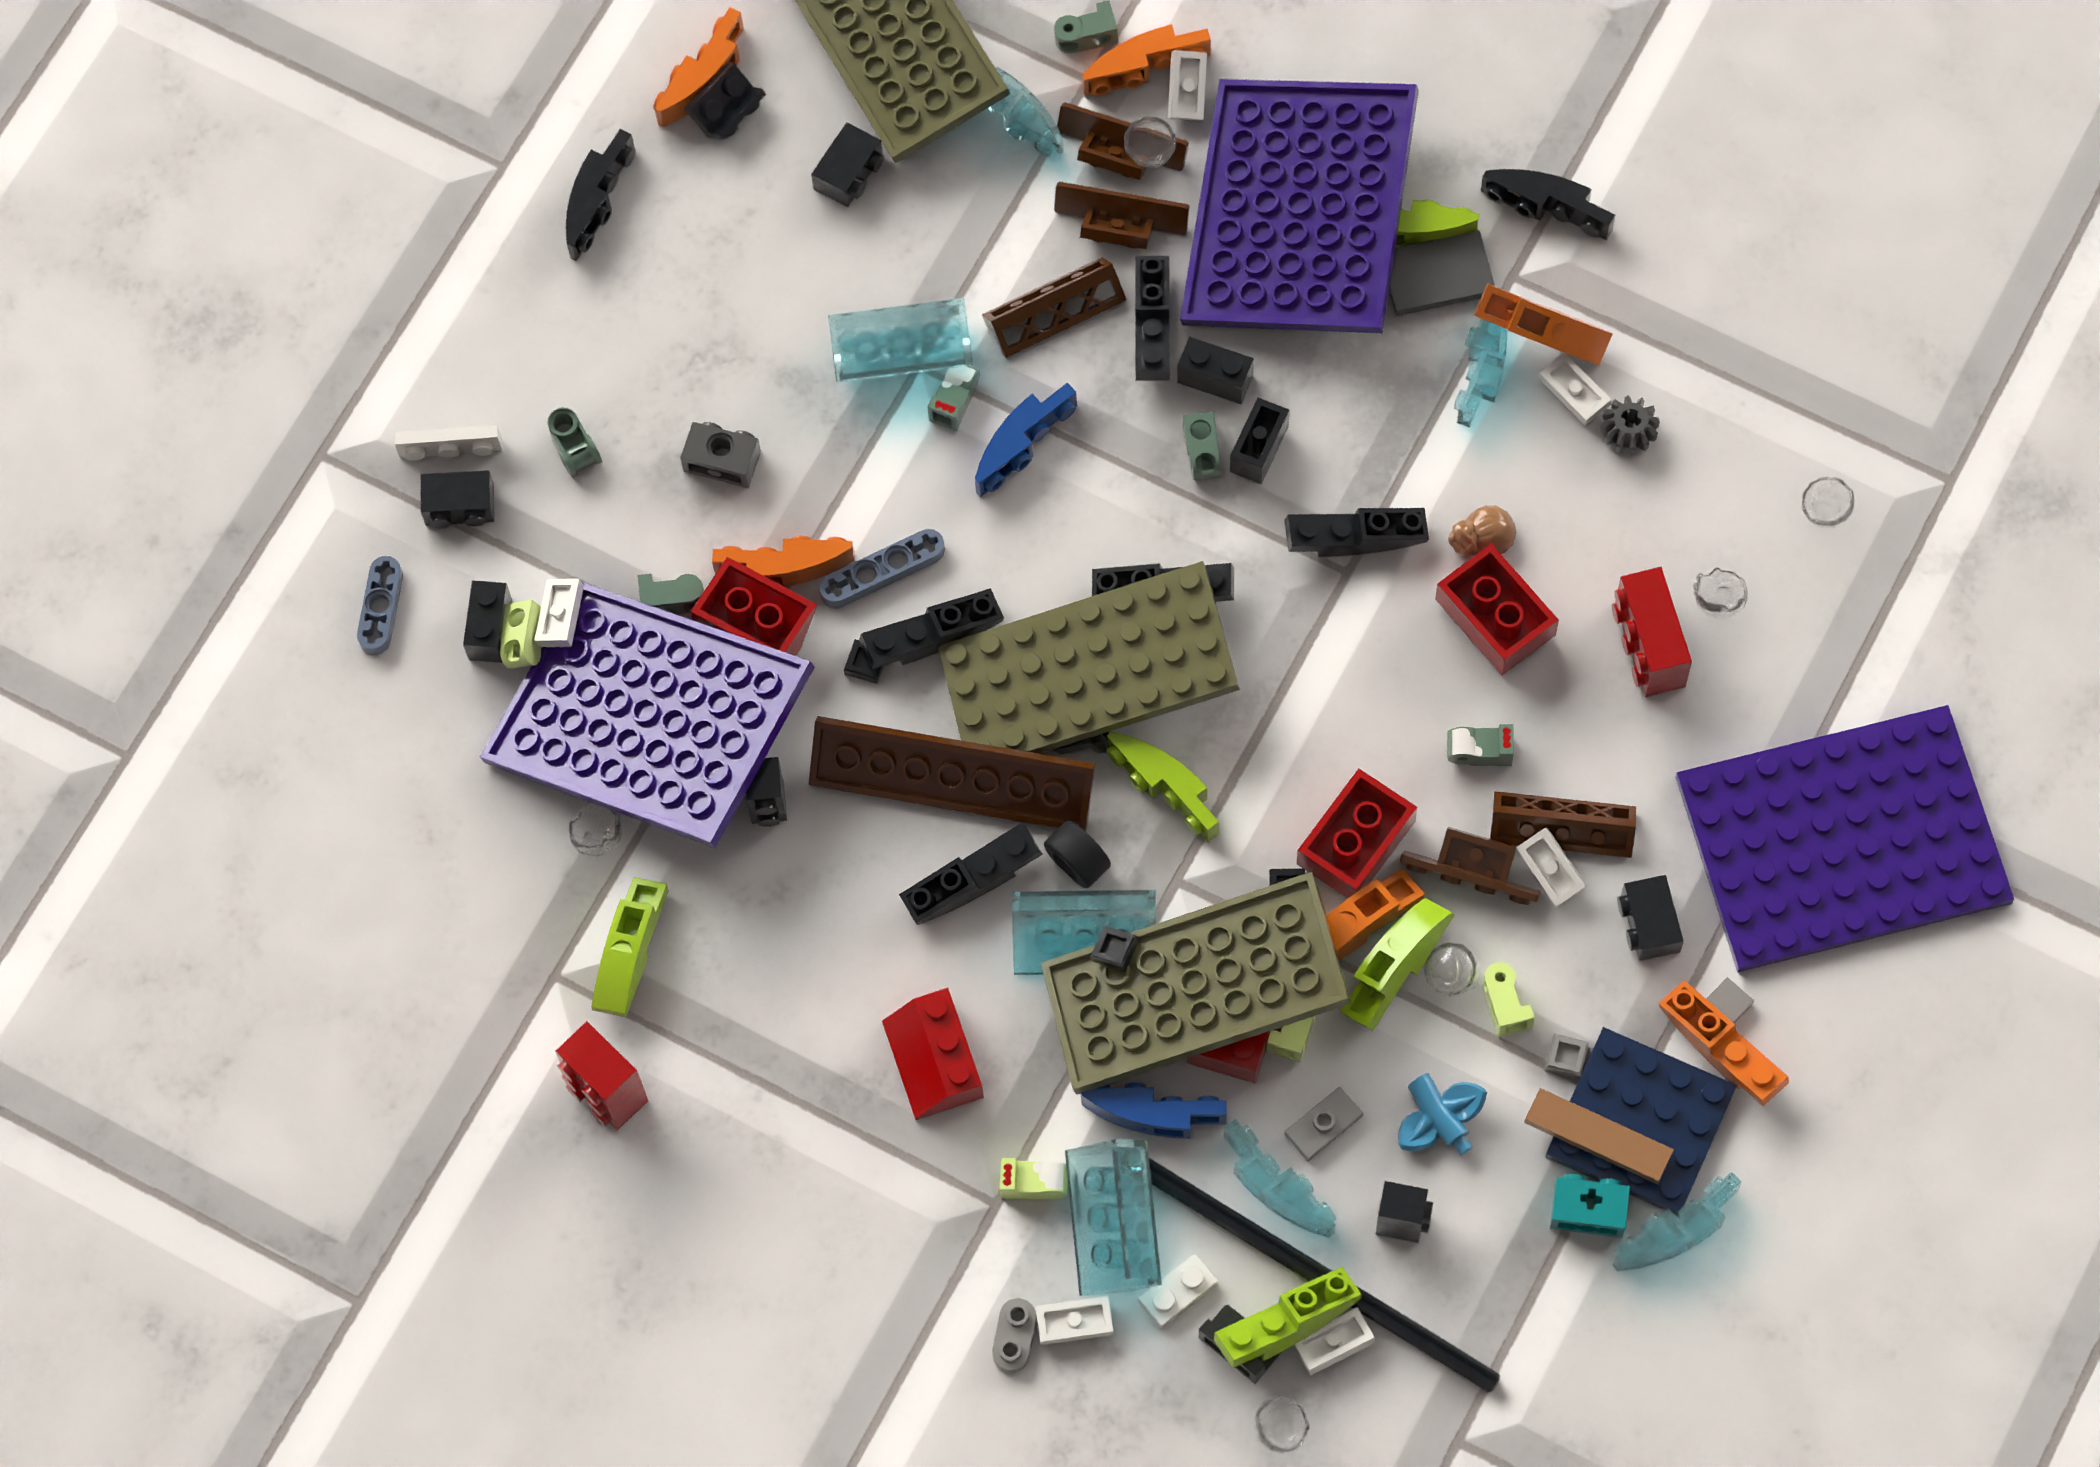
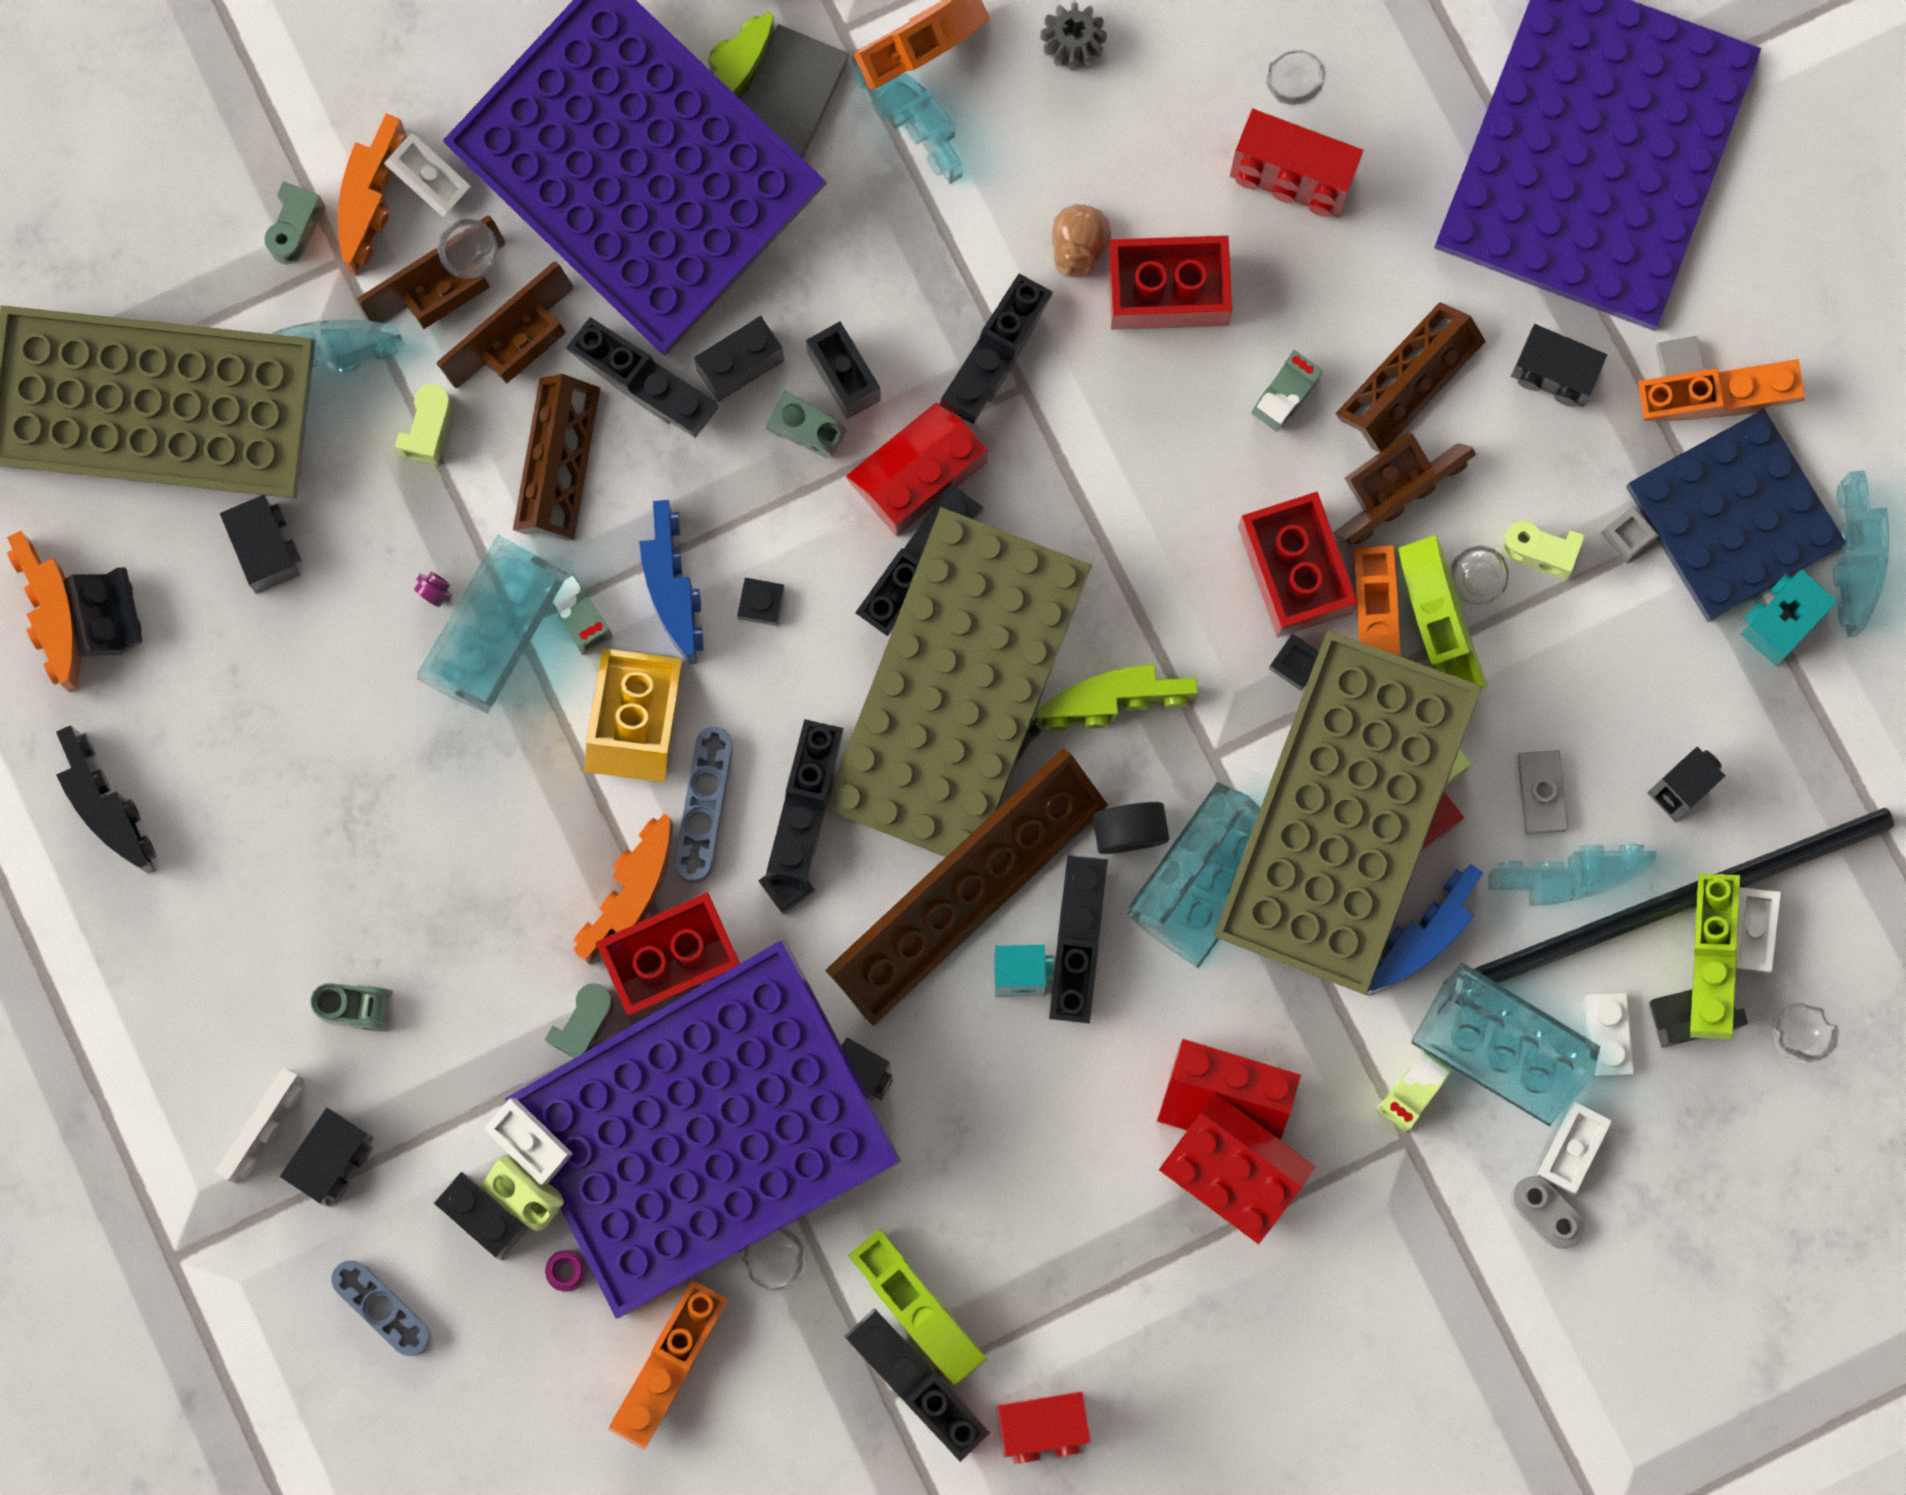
camera: 60 degrees left, 10 degrees up
(472, 814) = (668, 1365): none -> orange slope
(486, 695) = (556, 1261): none -> magenta plate
(576, 978) = (917, 1384): none -> black slope
(734, 468) = (463, 895): dark grey brick -> none
(882, 1088) = (1237, 1168): none -> red brick
(899, 291) = (433, 588): none -> magenta plate
(908, 478) = (633, 715): none -> yellow slope
(916, 847) = (1022, 970): none -> teal brick
(1011, 210) = (428, 427): none -> yellowish green leg
(1055, 506) = (760, 601): none -> black plate
(1114, 948) = (1257, 859): black tile -> none
(1230, 536) = (917, 466): none -> red slope
(1440, 1115) = (1609, 683): dark azure plant -> none
(1551, 867) = (1448, 416): white plate -> none
(1575, 389) = (1000, 57): white plate -> none
(1598, 1136) = (1733, 561): medium nougat tile -> none

